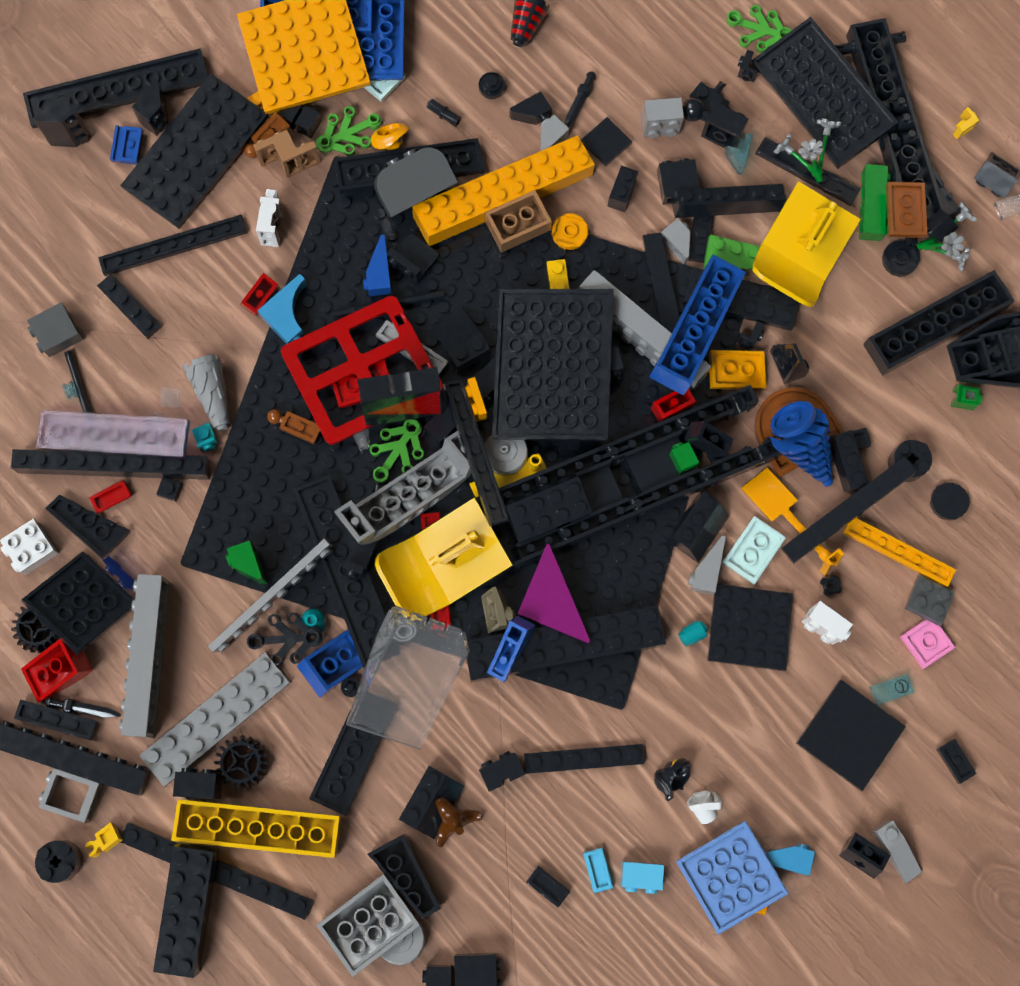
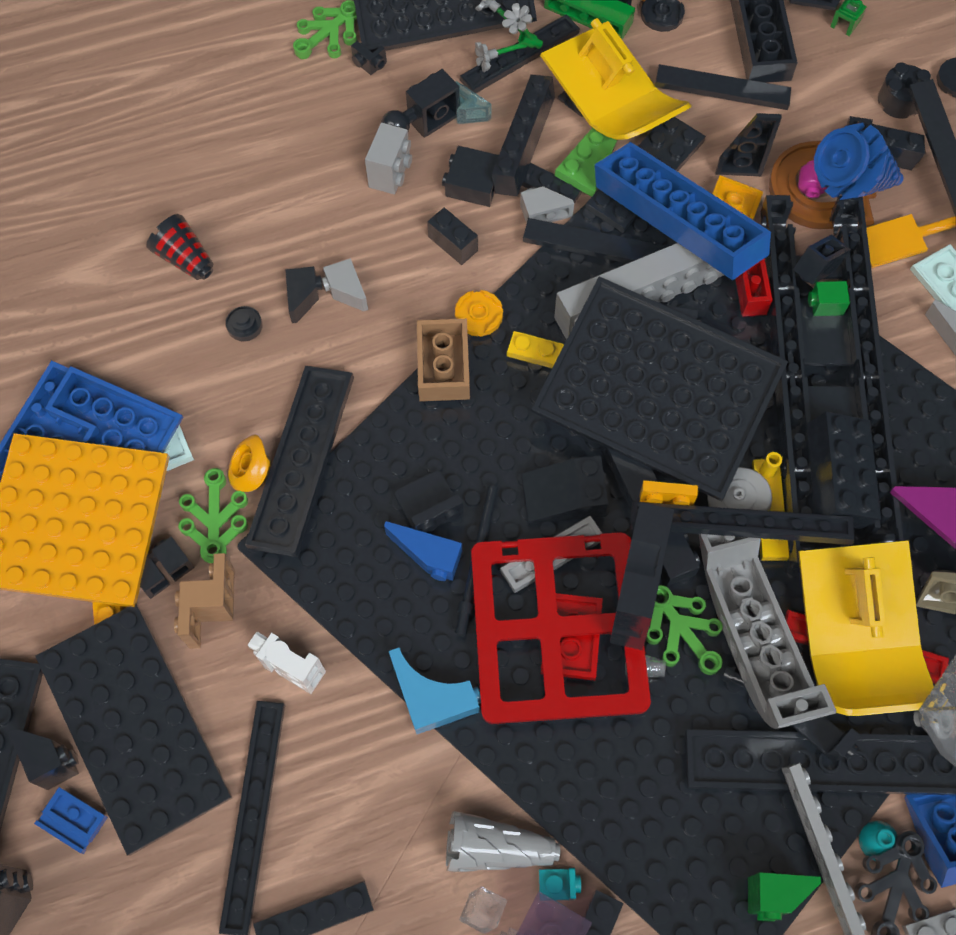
camera: 60 degrees left, 10 degrees down
(259, 294) = (387, 720): red brick -> none
(268, 129) = (161, 615): dark orange plate -> none
(295, 425) = (596, 747): dark orange plate -> none
(412, 179) = (333, 454): dark grey brick -> none
(443, 112) = (248, 392): black axle -> none
(466, 204) = (392, 366): light orange brick -> none
(583, 92) = (305, 229): black sword -> none
(606, 141) = (382, 232): black tile -> none
(699, 526) = (907, 327): black slope -> none
(709, 95) = (375, 111): black plate -> none
(756, 335) = (695, 174): black bracket -> none
(849, 327) = (723, 87): none -> black tile

